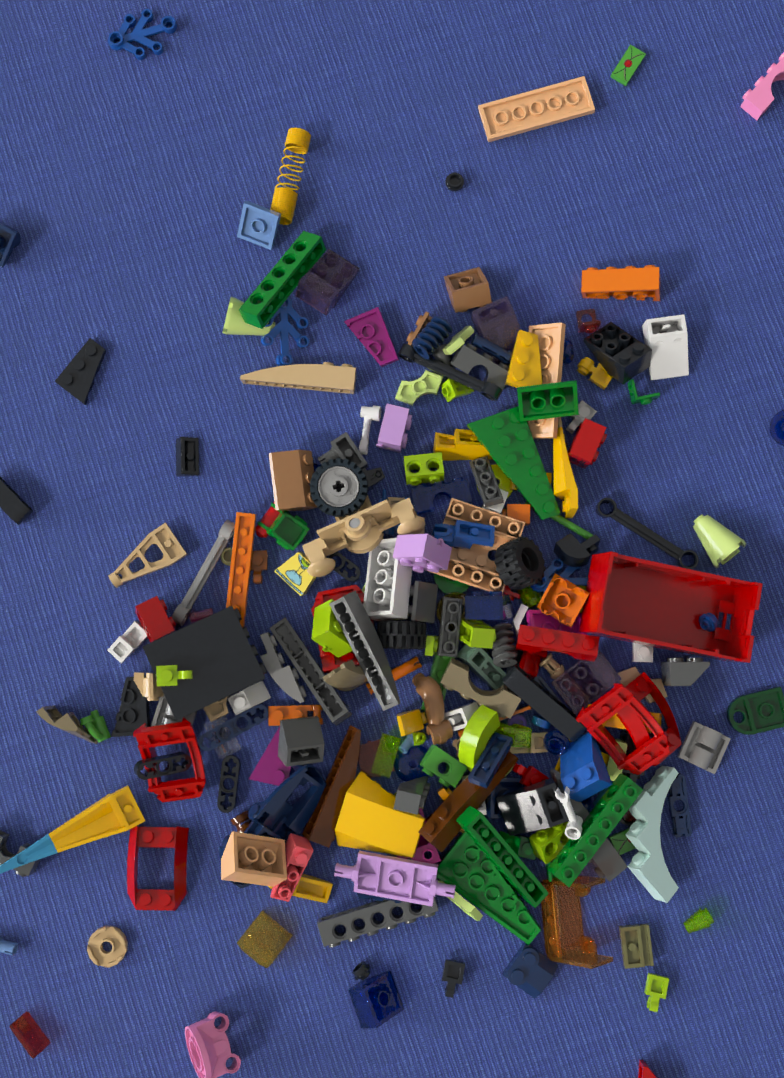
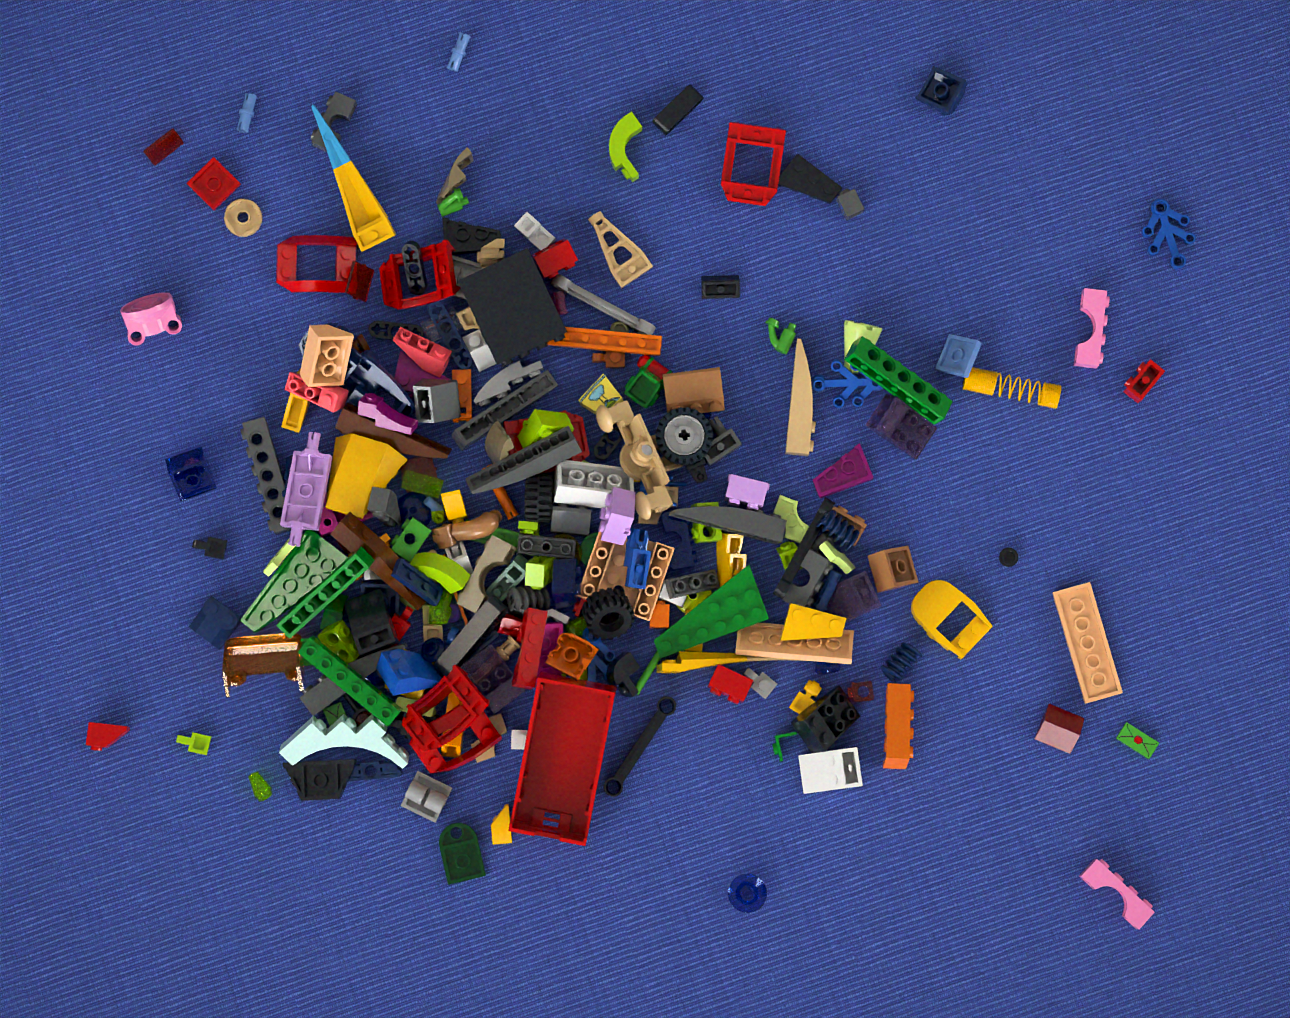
camera: 80 degrees right, 0 degrees up
(27, 552) = (623, 131): none -> lime arch
(35, 418) = (757, 136): none -> red wedge
(70, 979) = (213, 184): none -> red plate
(106, 330) = (849, 203): none -> dark grey brick
(169, 675) = (500, 273): lime plate -> none
(176, 823) = (359, 281): none -> clear red piece
(211, 99) = (1093, 304): none -> bright pink arch
(239, 391) = (784, 342): none -> bright green plant
(250, 755) = (425, 353): none -> coral slope
(264, 939) = (247, 367): clear yellow slope -> none
(284, 53) = (1141, 384): none -> red brick
(317, 795) = (385, 417): none -> magenta slope
(361, 971) = (217, 460): black plate -> none
(369, 414) = (763, 469): white brick -> none
(423, 436) = (737, 521): none -> dark grey slope
(501, 249) = (935, 603): none -> yellow slope
(548, 400) = (769, 642): green slope -> none
(559, 282) = (900, 662): none -> dark blue piece
(574, 826) = (356, 661): white brick -> none
(618, 134) = (1059, 728): none -> slope
(636, 946) = (237, 725): olive plate -> none
(680, 673) = (500, 774): dark grey slope -> none
(689, 857) = (320, 778): none -> black wing
(708, 622) = (550, 801): blue plate -> none
(717, 540) = (632, 815): yellowish green cone -> none
(731, 671) = (500, 827): none -> yellow slope

